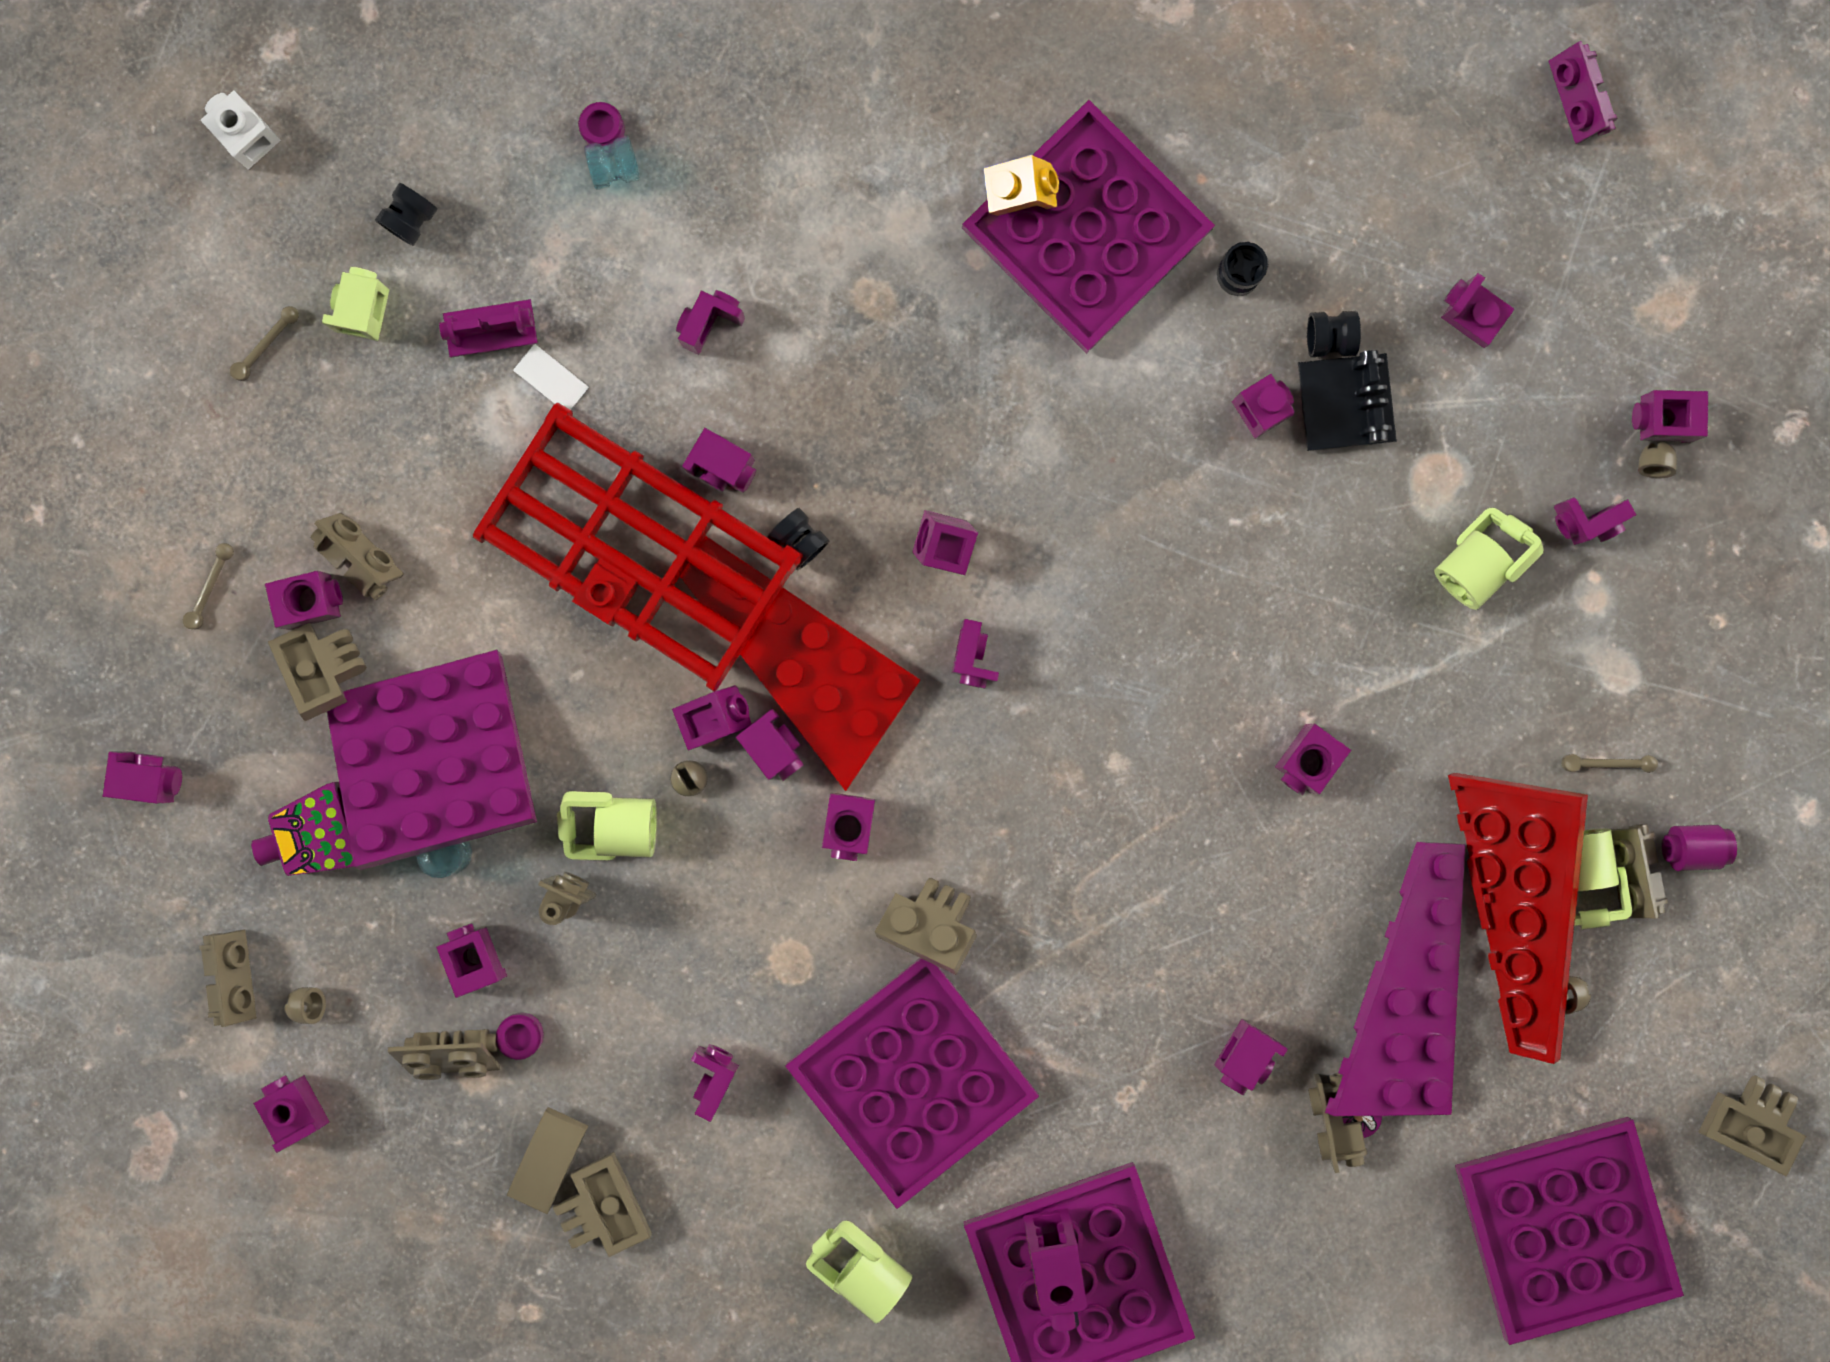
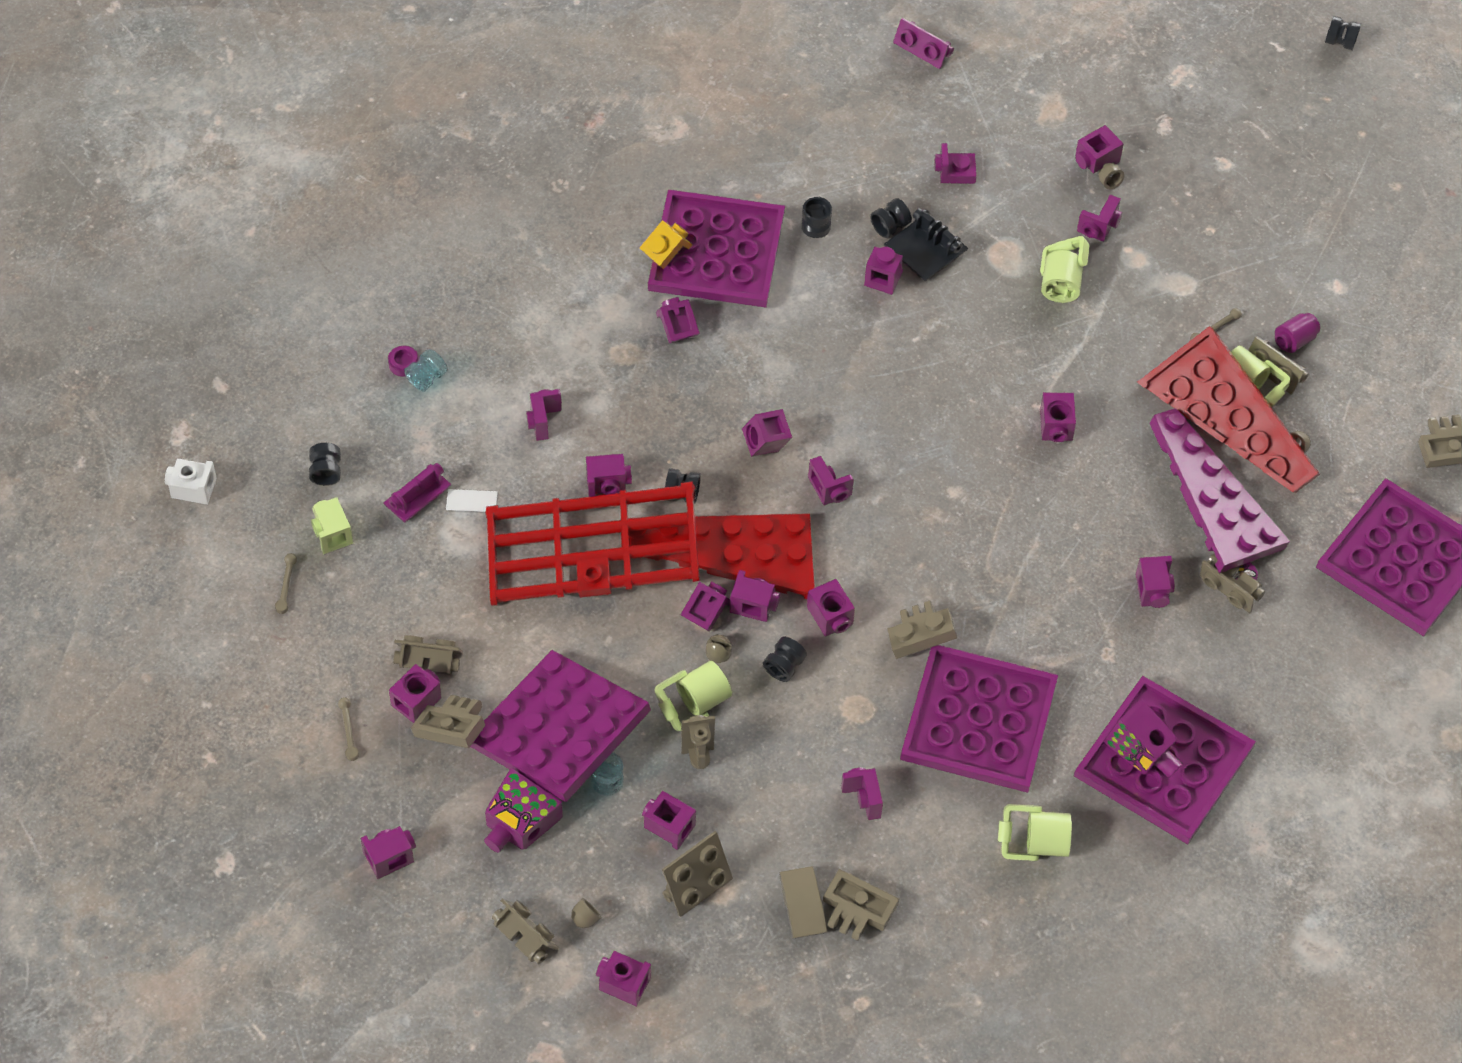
camera: 35 degrees left, 30 degrees down
(519, 1036) = (734, 847): magenta tile -> none
(746, 851) = (785, 657): none -> black wheel
(962, 299) = (678, 319): none -> magenta bracket

